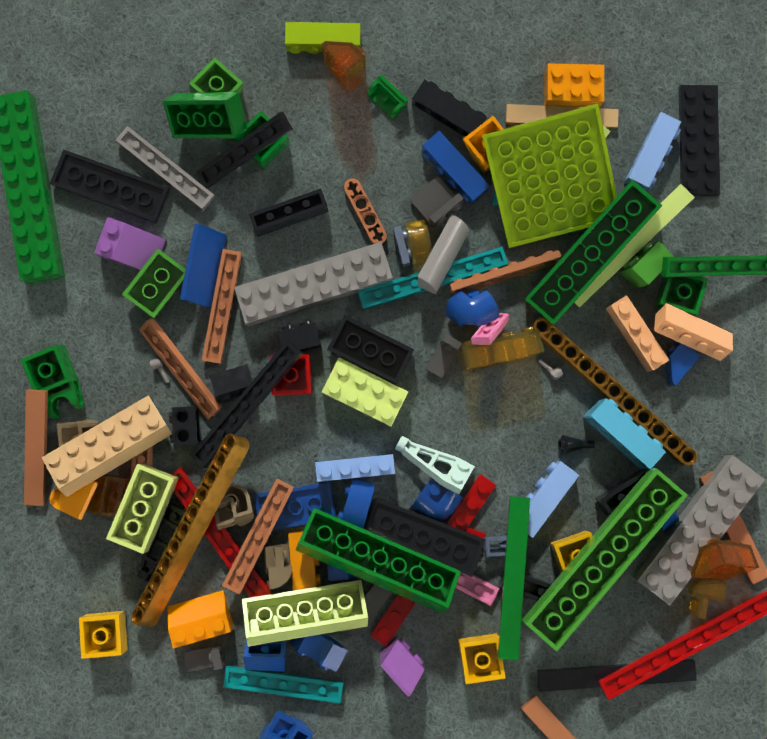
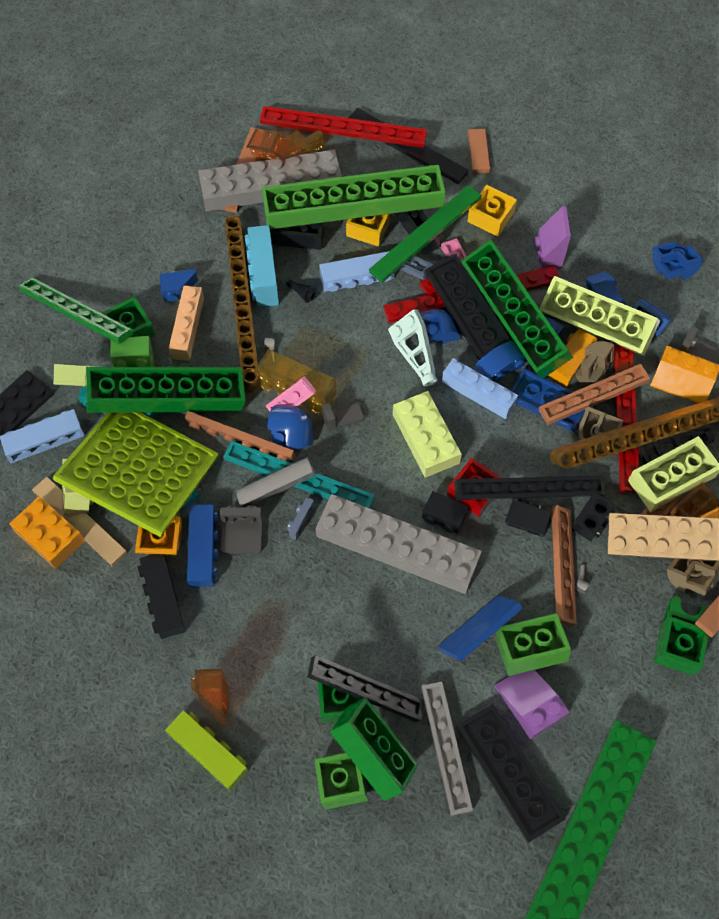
camera: 140 degrees left, 20 degrees down
(222, 306) = (488, 588): nougat plate -> none
(283, 684) = (649, 291): teal plate -> none
(289, 212) = (369, 615): black brick -> none
(367, 211) = (308, 572): nougat beam -> none
(370, 350) = (396, 458): black brick -> none
(387, 97) = (201, 648): green hinge -> none
(419, 240) = (281, 511): clear yellow brick -> none
(693, 332) = (148, 290): light nougat brick -> none

